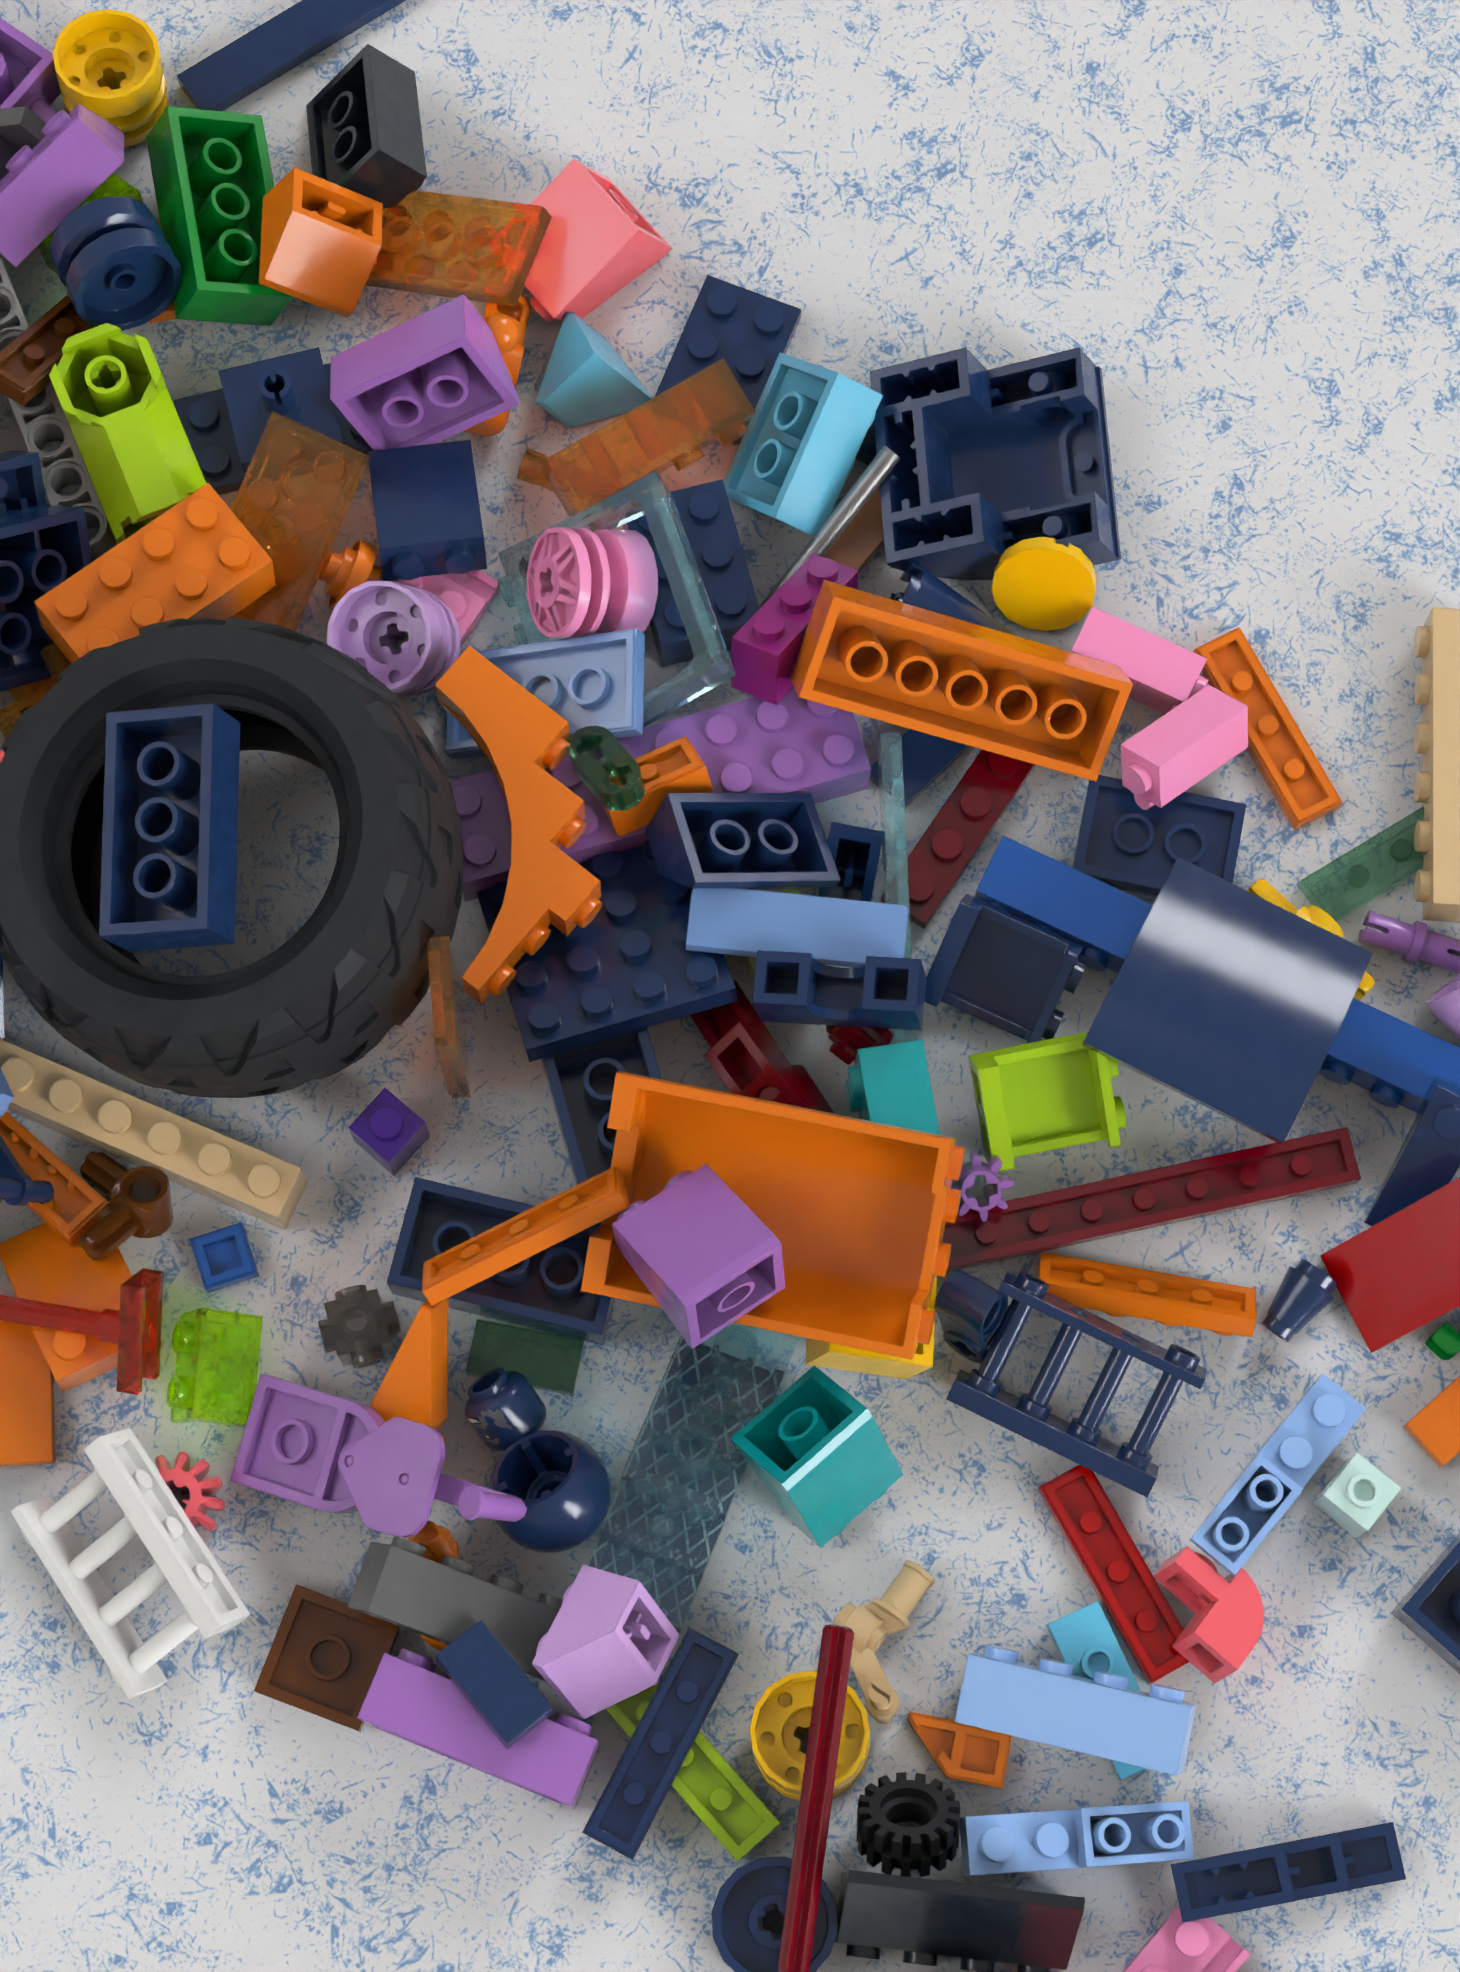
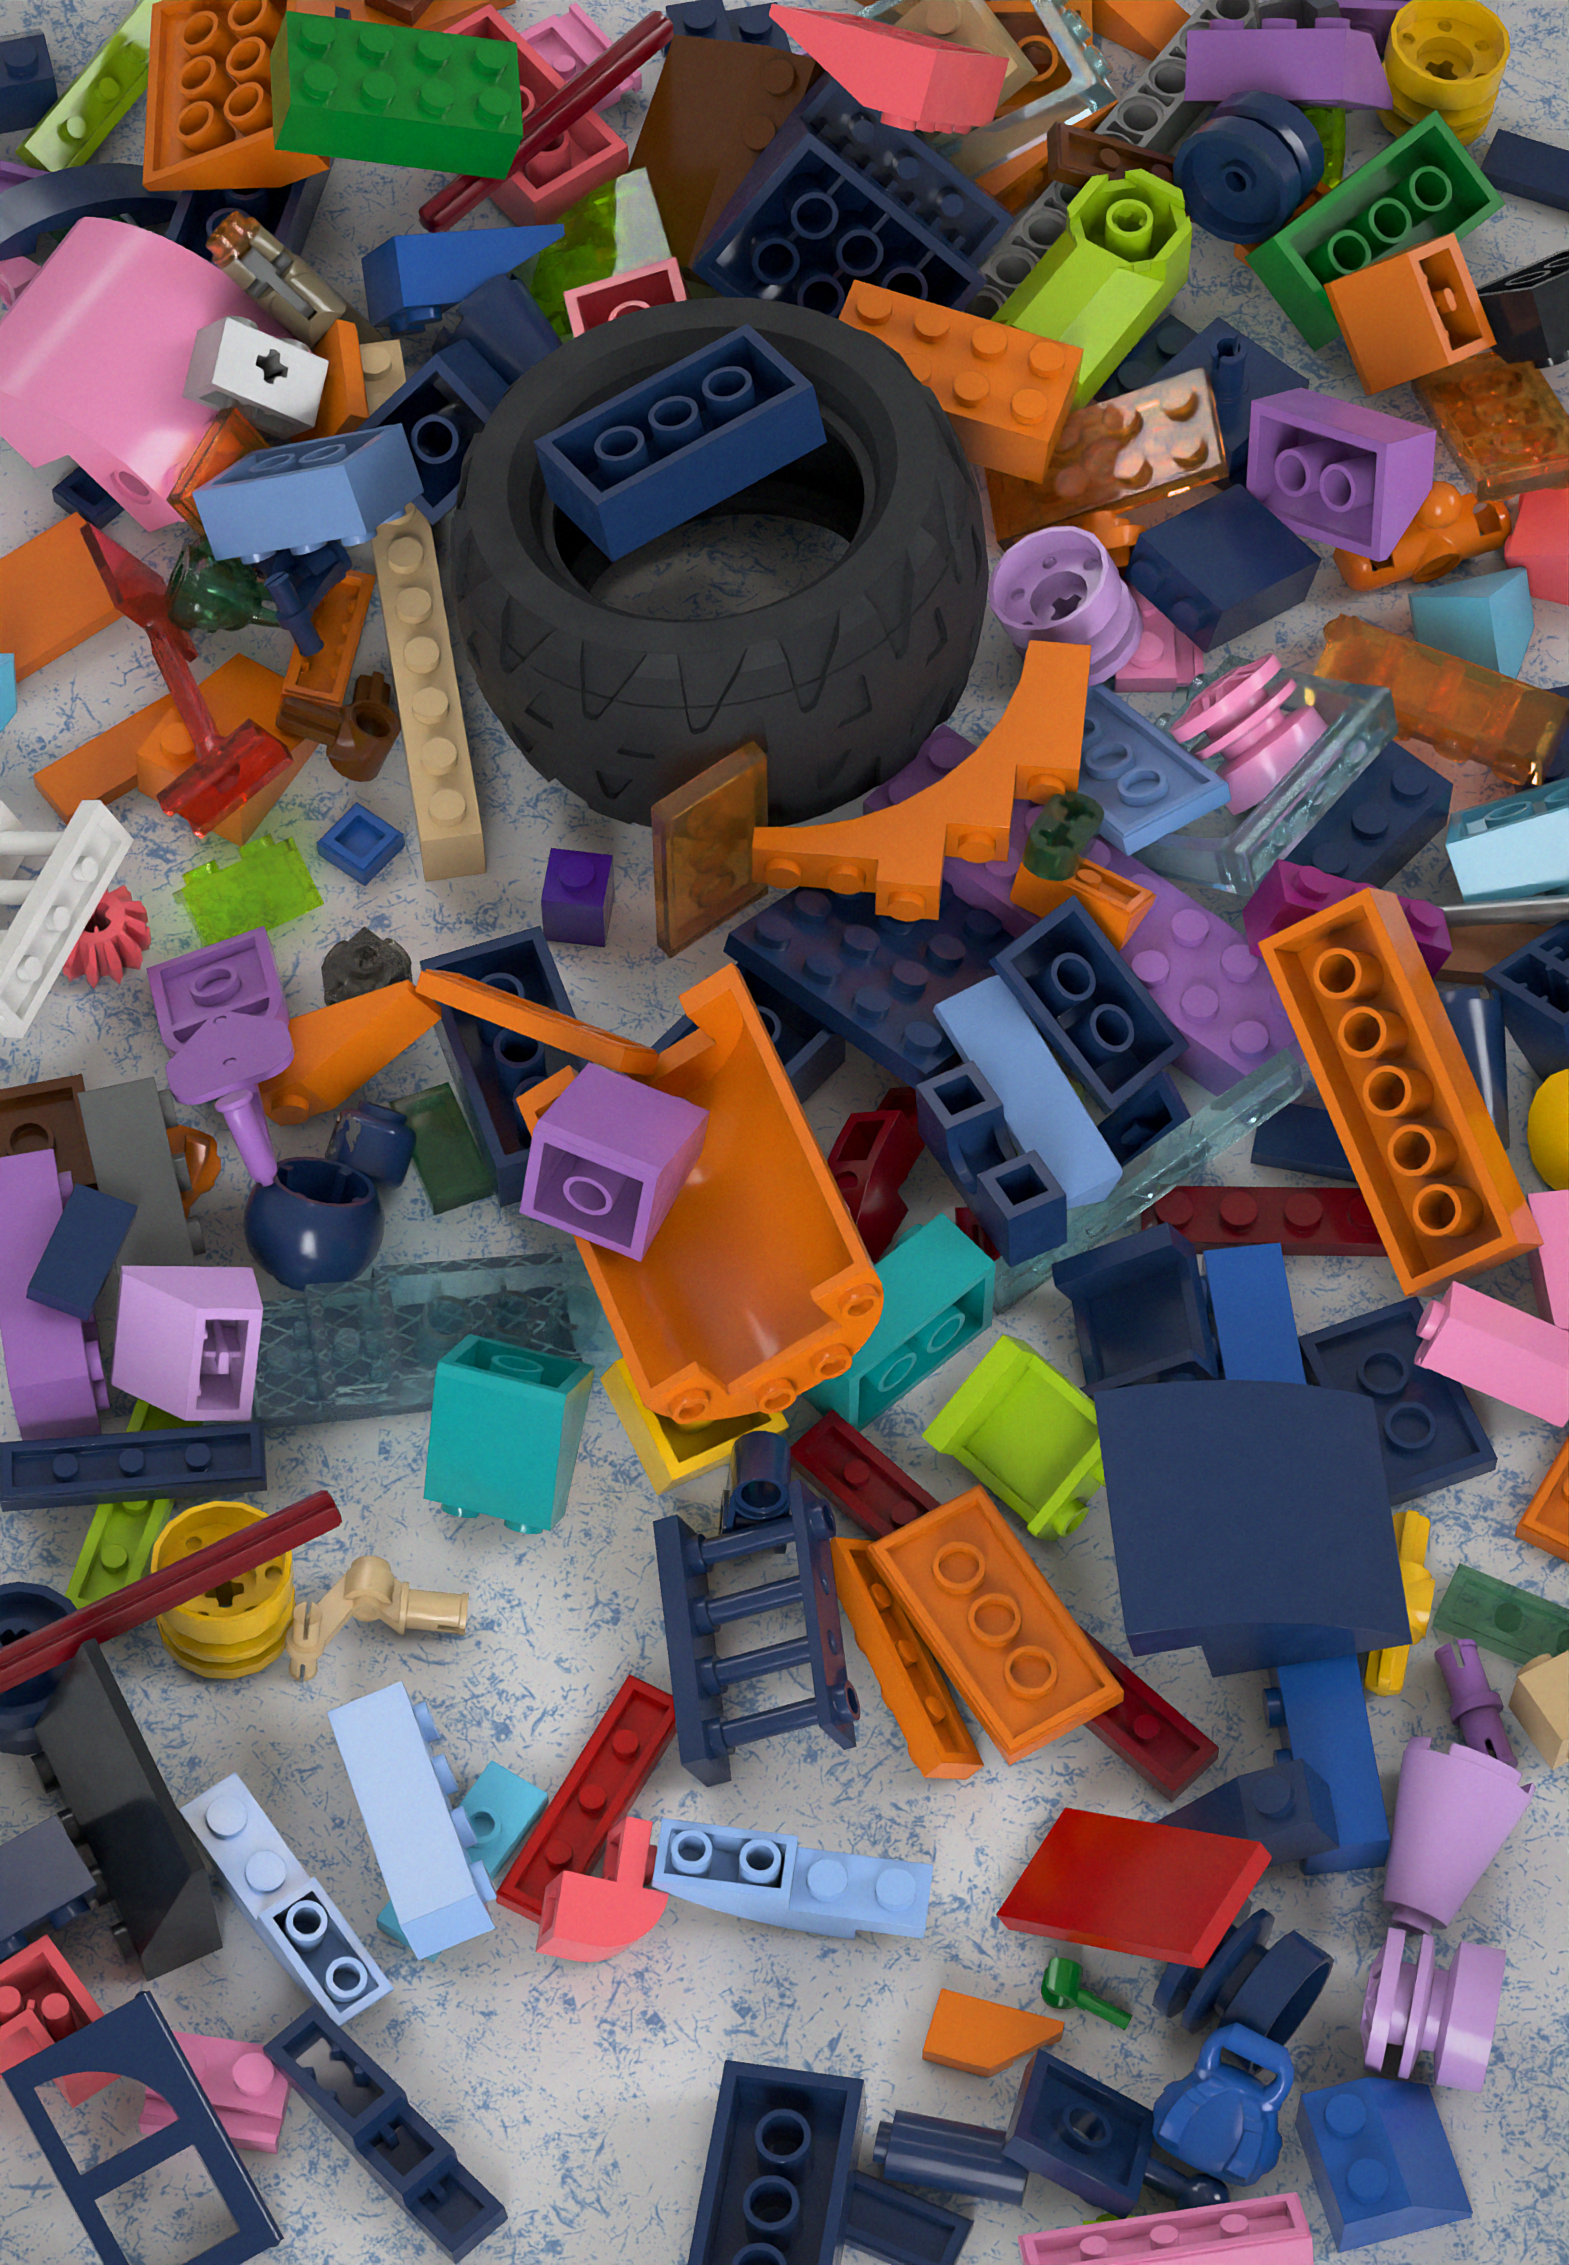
camera: 60 degrees right, 15 degrees down
(908, 1846) = (196, 1728): black tyre -> none
(963, 1750) = (311, 1761): orange tile -> none
(991, 1192) = (874, 1421): medium lavender gear -> none
(1167, 1215) = (995, 1624): none -> orange tile
(1298, 1299) = (1000, 1809): dark blue cone -> none
(1356, 1495) = (827, 1974): light aqua brick -> none

